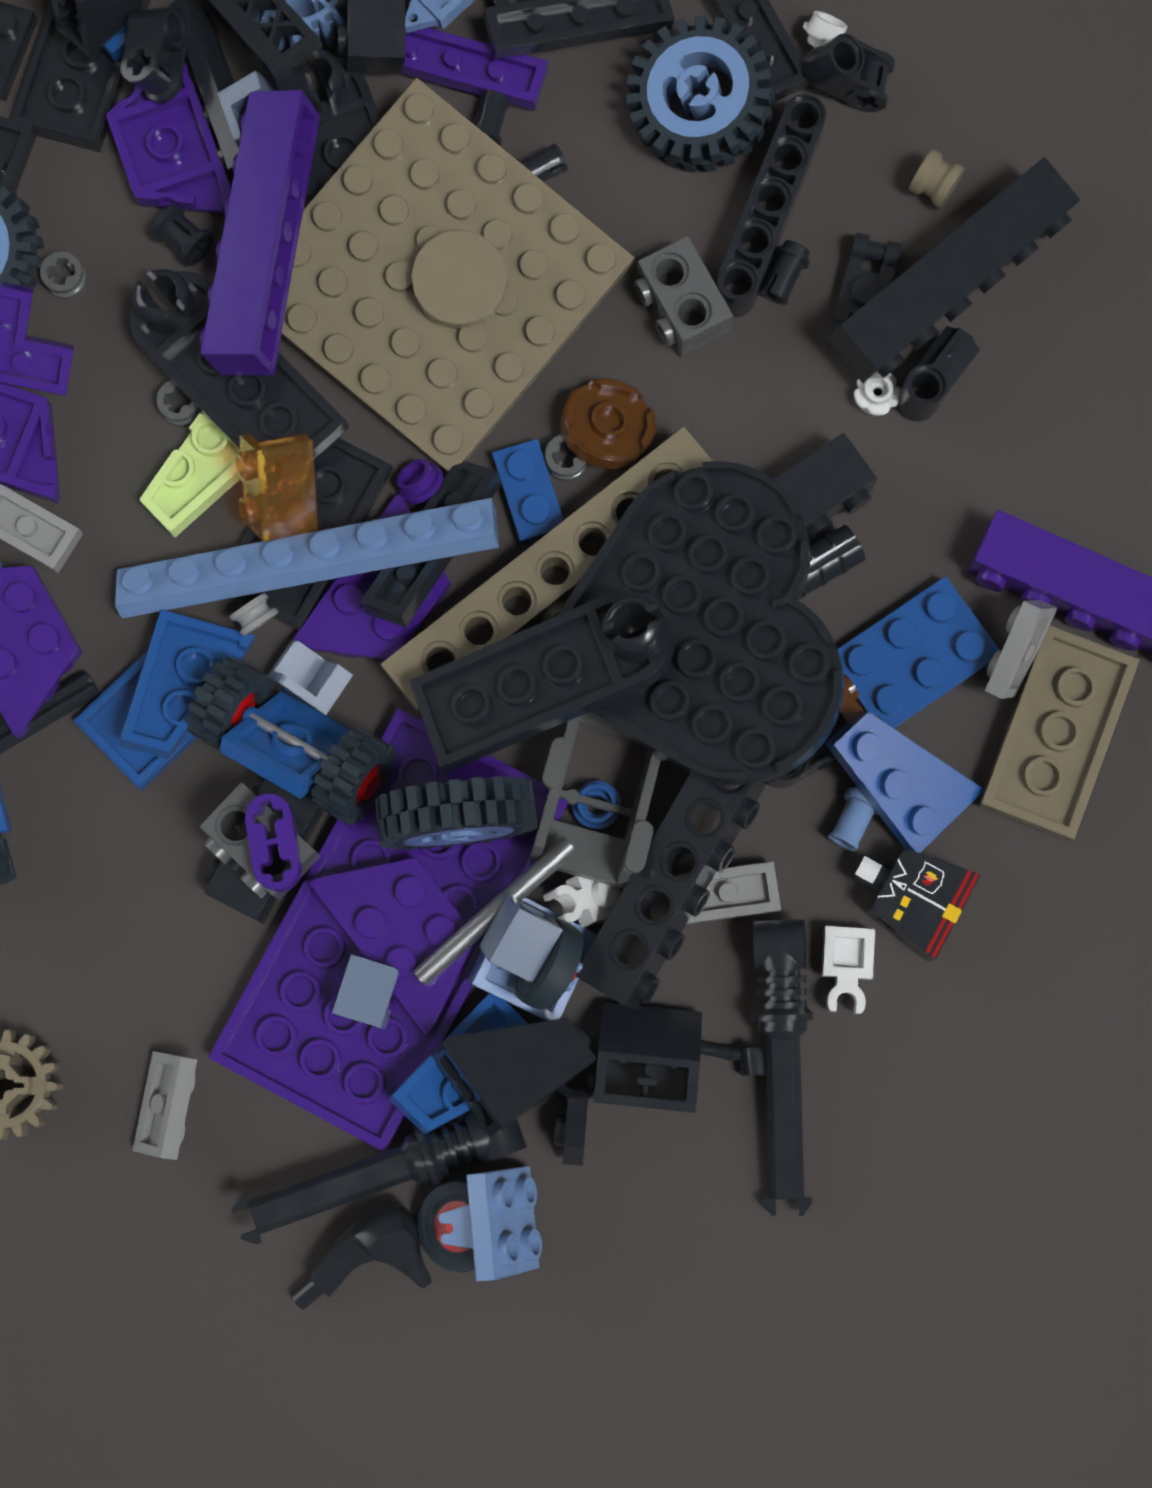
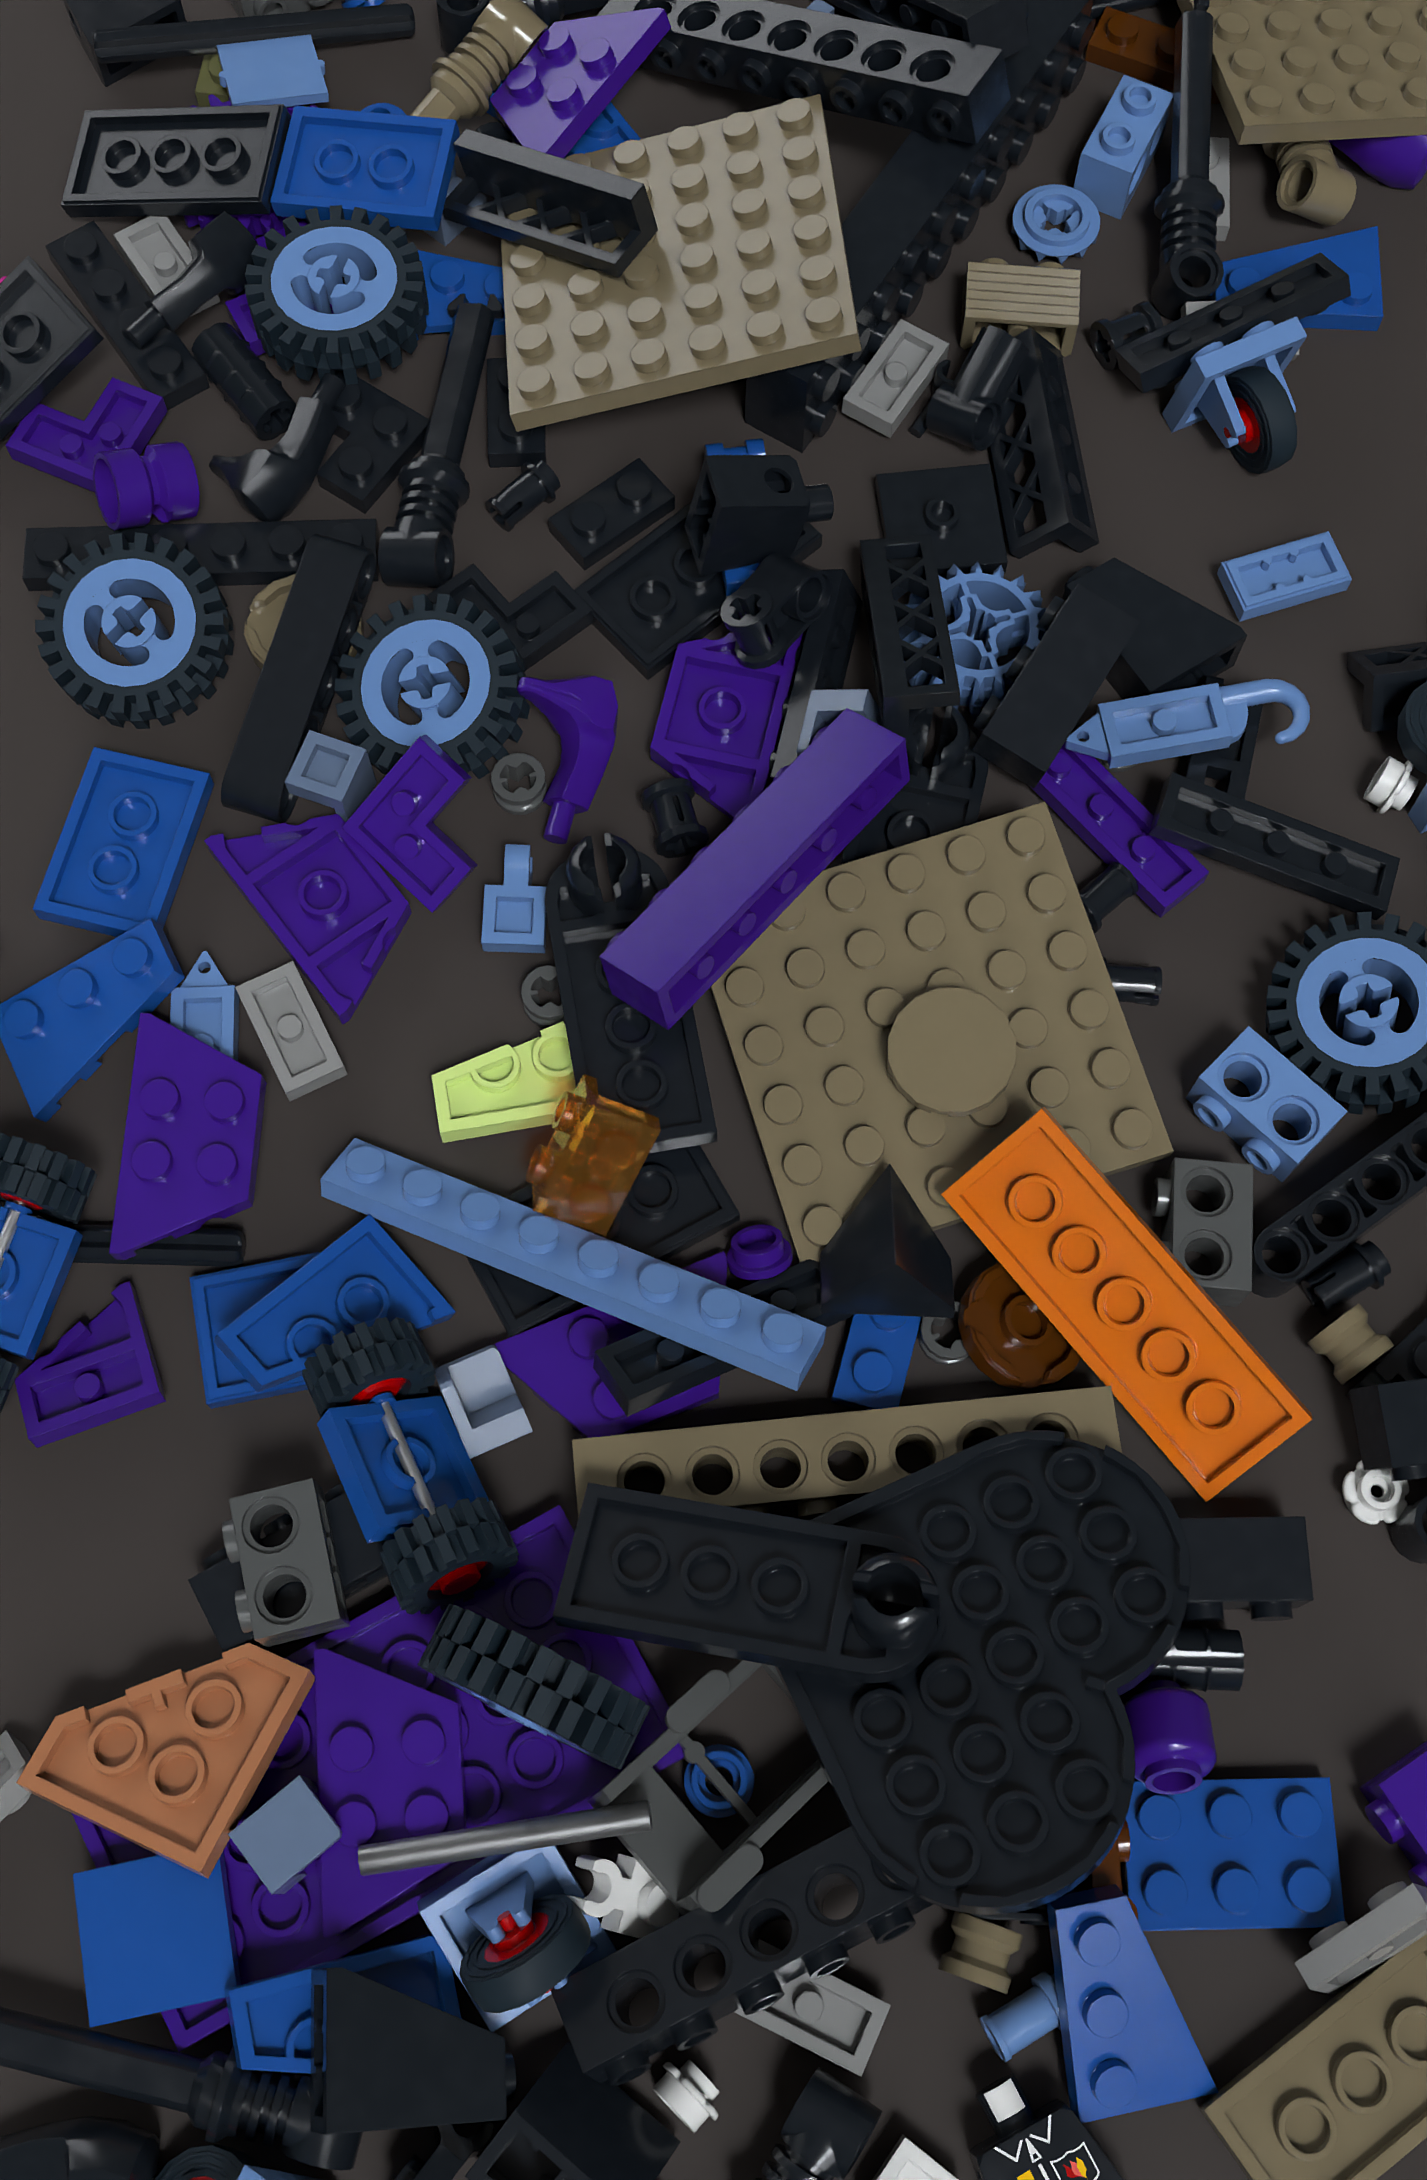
camera: 30 degrees right, 10 degrees down
(54, 816) = (92, 1374): none -> dark purple wing
(78, 203) = (586, 718): none -> dark purple animal
(118, 360) = (516, 910): none -> medium blue plate
(254, 614) = (468, 1287): light grey bush -> none
(261, 844) = (282, 1568): dark purple beam -> none
(266, 994) = (173, 1754): none -> nougat plate
(326, 1097) = (153, 1938): none -> blue tile
(500, 435) = (886, 1259): none -> black slope
(520, 938) = (510, 1898): sand blue panel -> none
(660, 370) = (1126, 1305): none -> orange plate
(675, 181) = (1276, 1093): none -> medium blue brick
(689, 984) = (687, 2094): none -> white plate
(806, 800) = (980, 1952): none -> dark tan wheel
(811, 311) = (1350, 1343): none -> dark tan wheel
(843, 609) = (1170, 1737): none -> dark purple head

